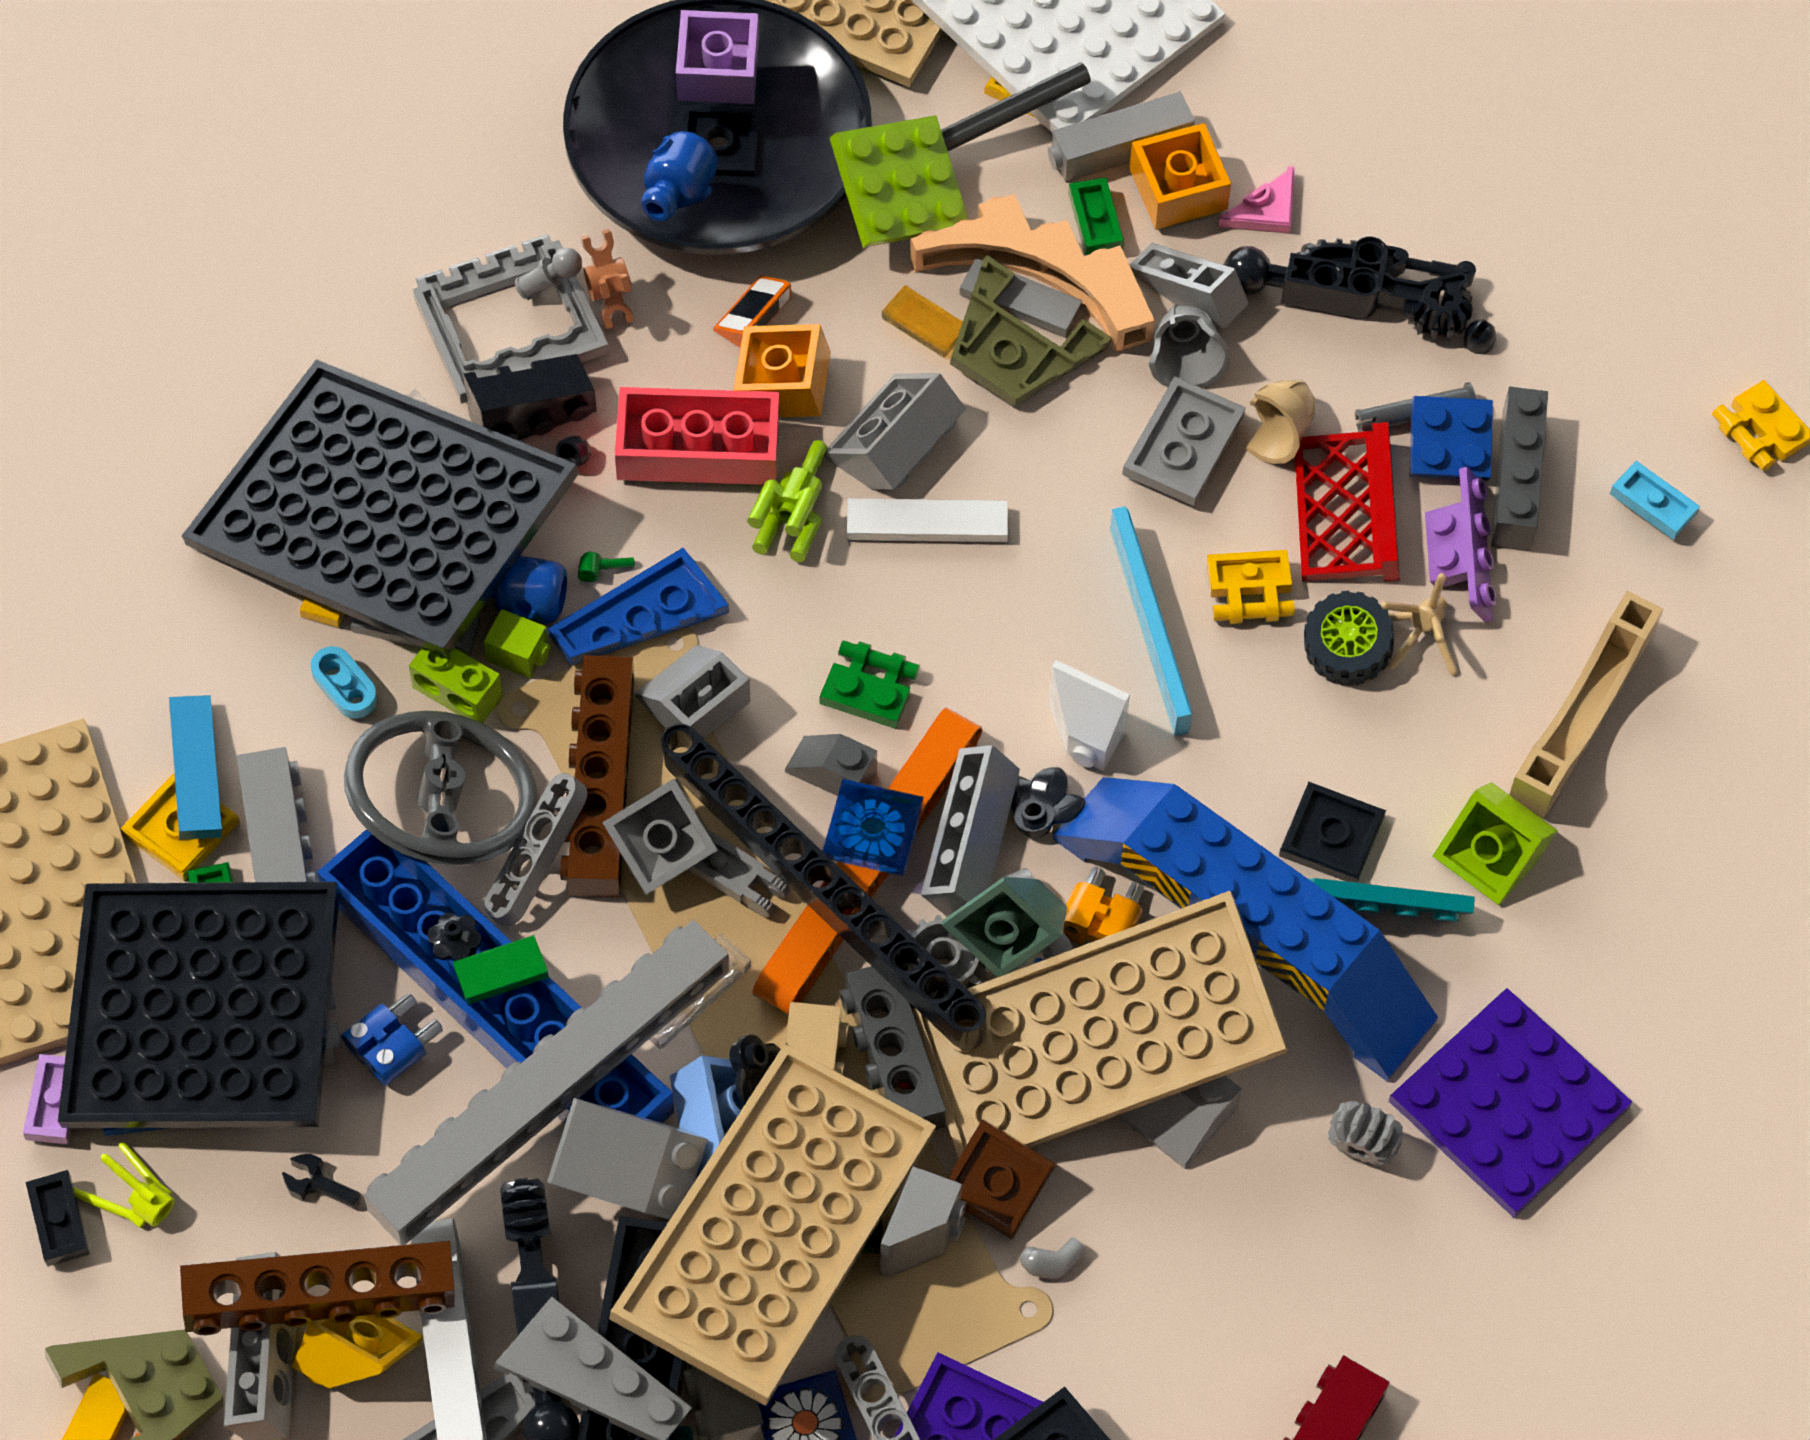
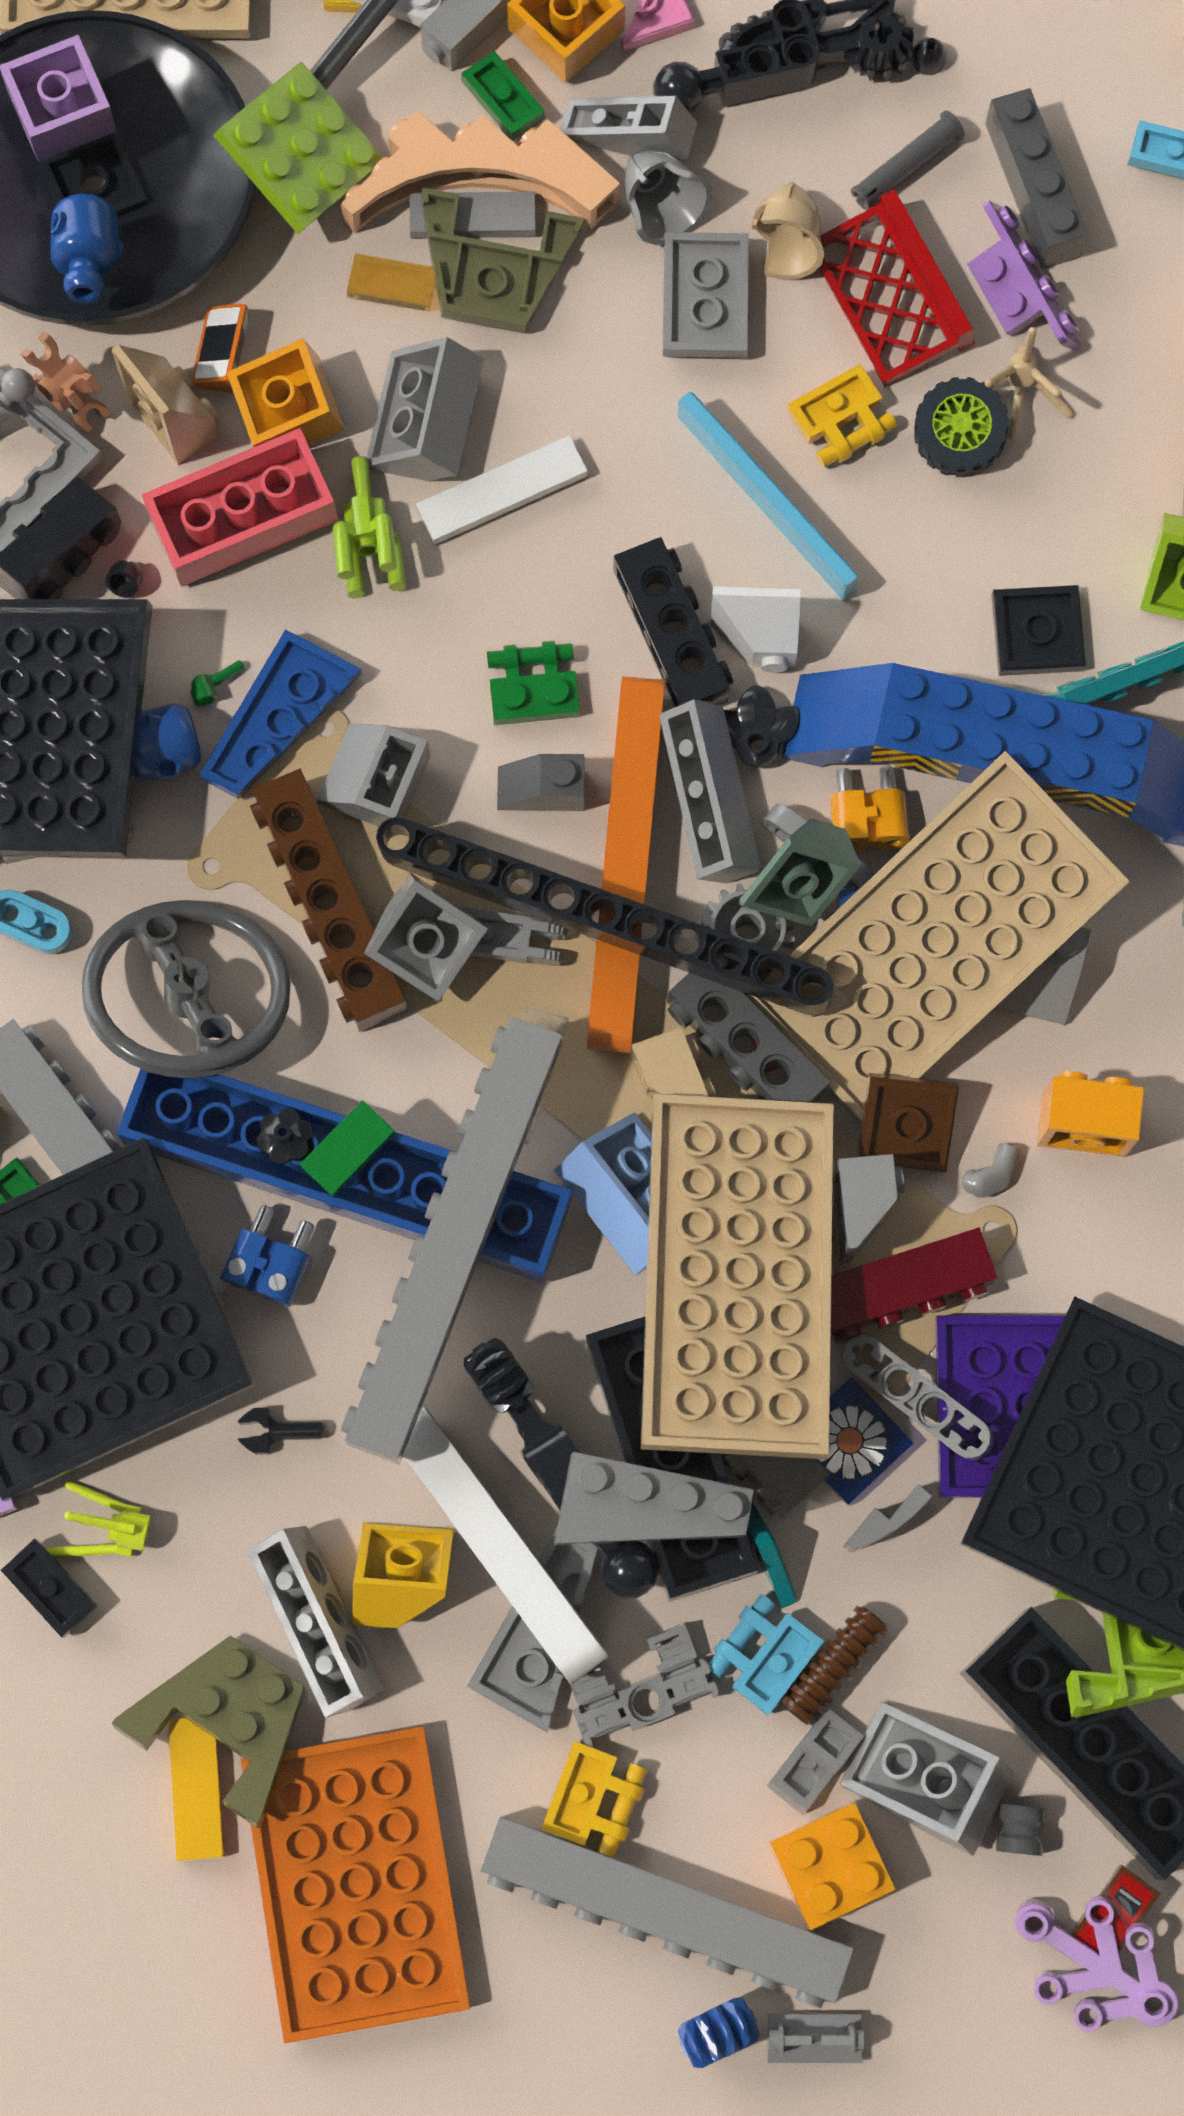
camera: 25 degrees left, 15 degrees up
(296, 1274) = (437, 1472): reddish brown brick -> none
(457, 683) = (144, 873): lime brick -> none
(517, 644) = (177, 803): lime brick -> none
(531, 847) = (316, 1007): light grey beam -> none
(626, 1159) = (567, 1277): light grey slope -> none
(682, 327) = (166, 402): none -> tan slope
(750, 1061) = (631, 1121): black plate -> none
(873, 827) = (619, 833): clear blue tile -> none
(922, 1312) = (908, 1282): none -> dark red brick
(1014, 631) = (654, 564): none -> black brick
(1159, 1243) = (1090, 1114): none -> light orange brick
(1450, 436) = (956, 175): blue plate -> none

